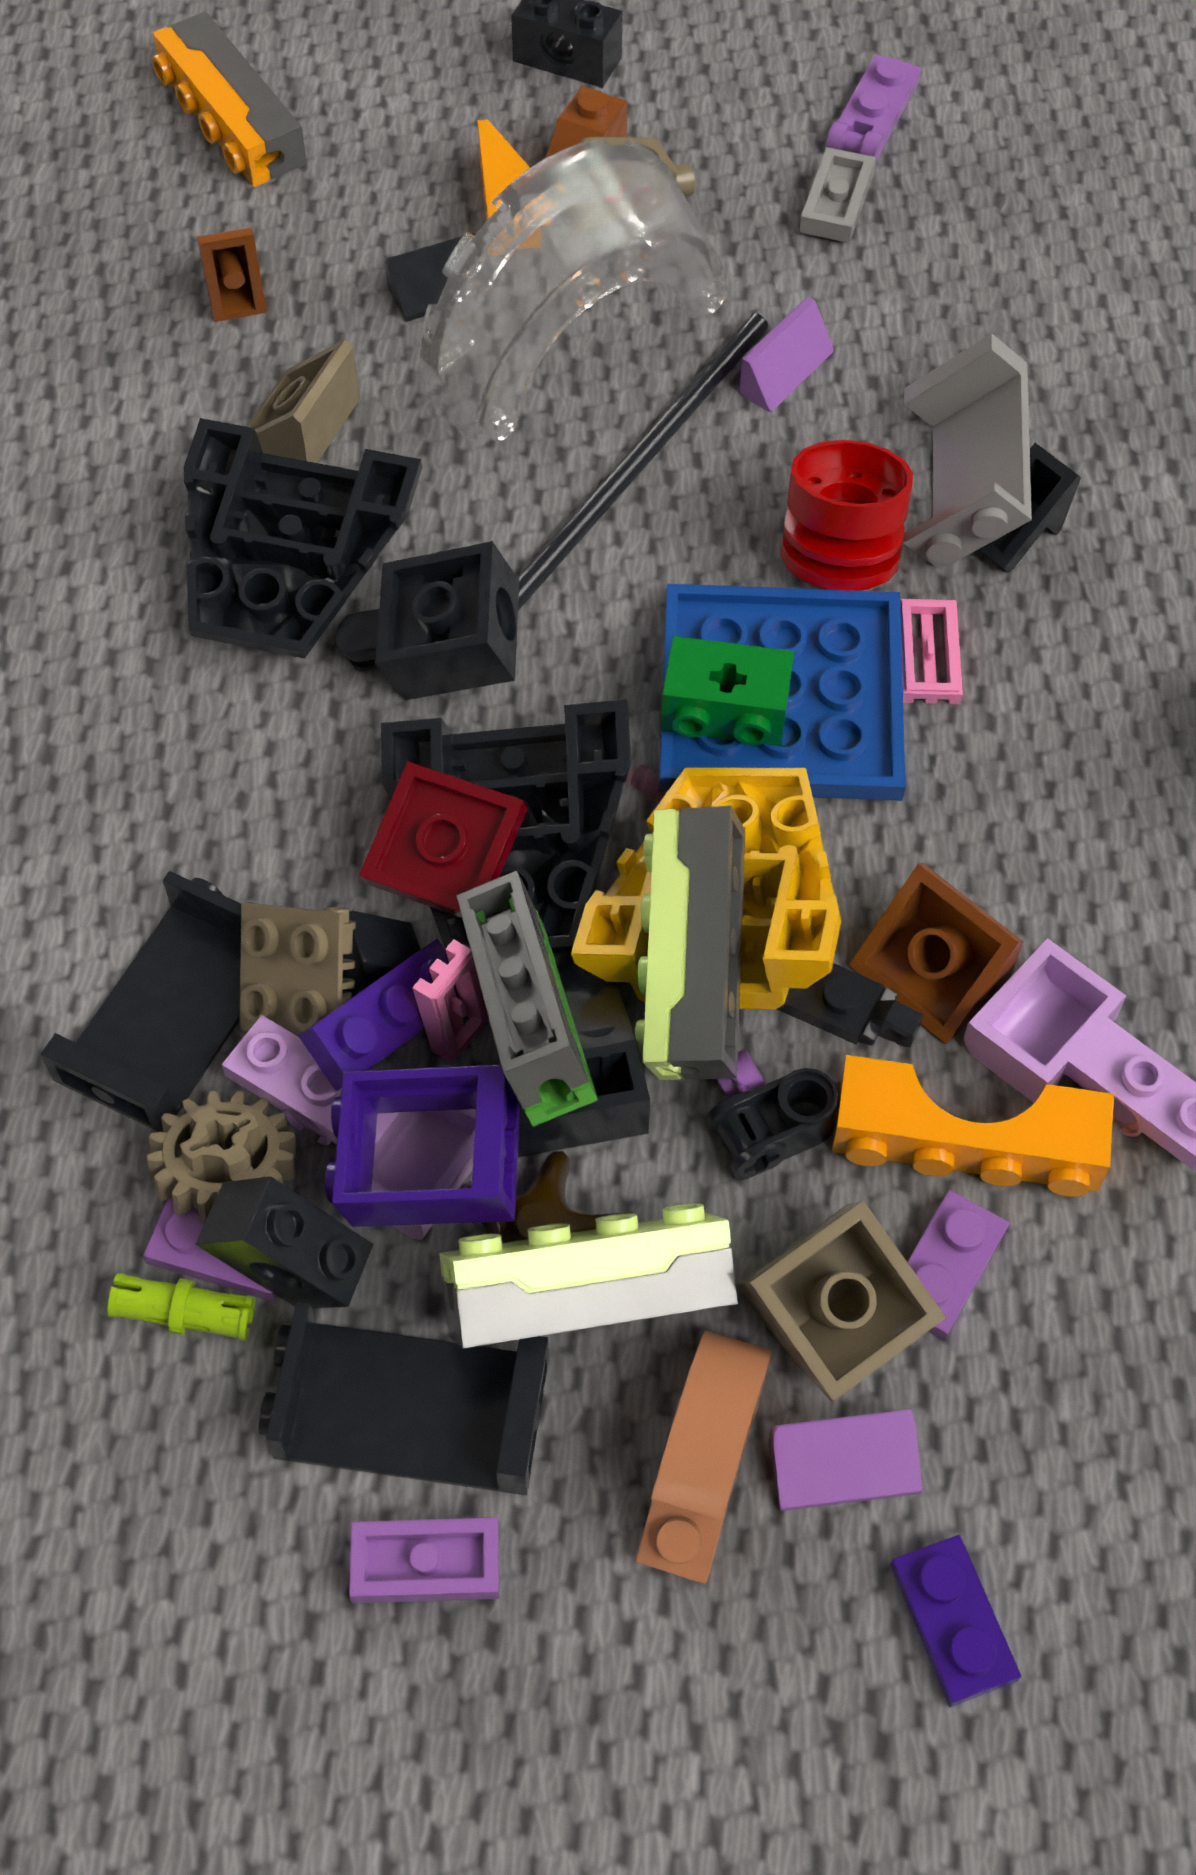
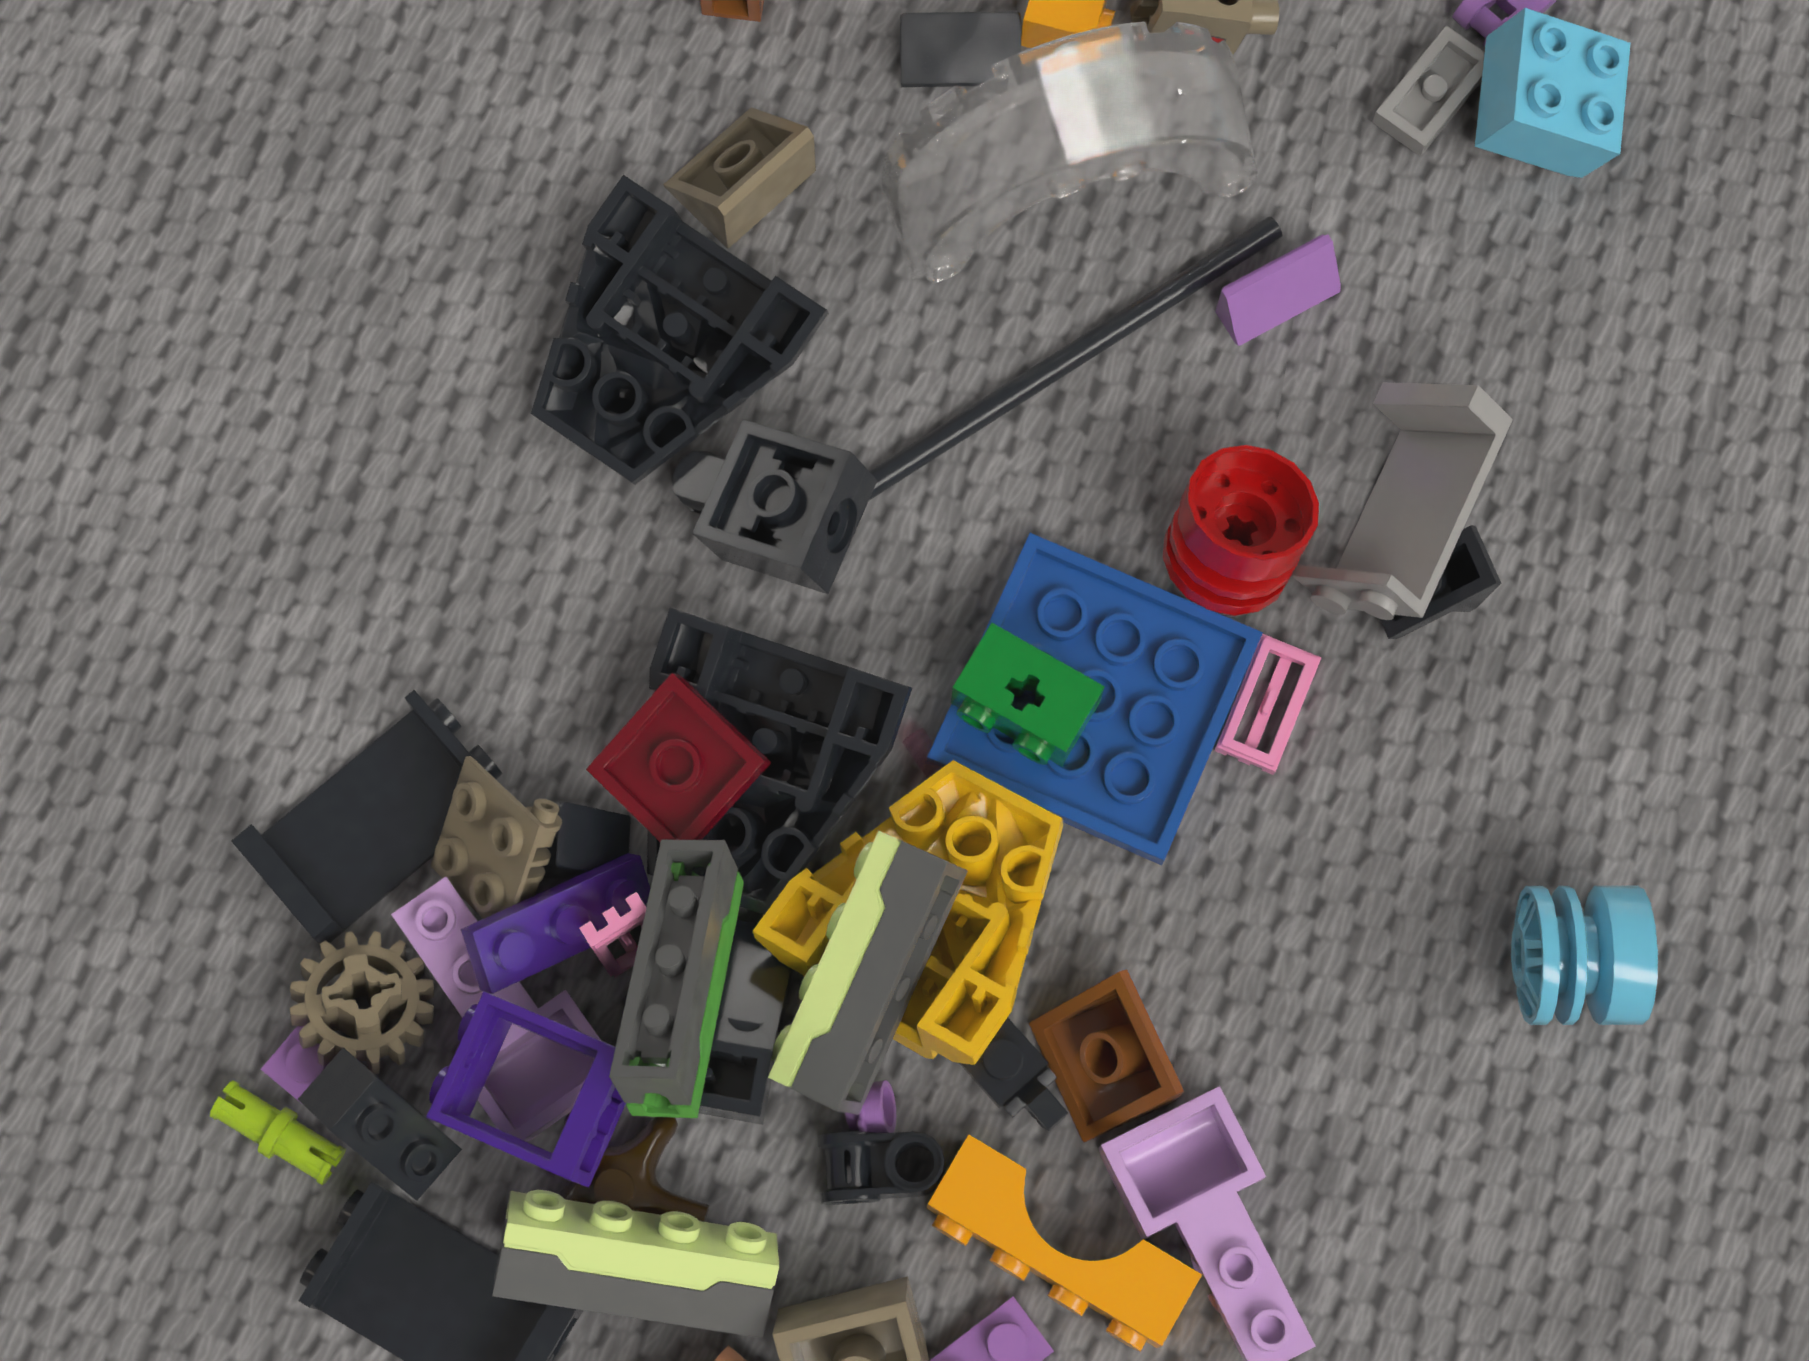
camera: 20 degrees right, 15 degrees up
(934, 159) = (1552, 94): none -> medium azure brick

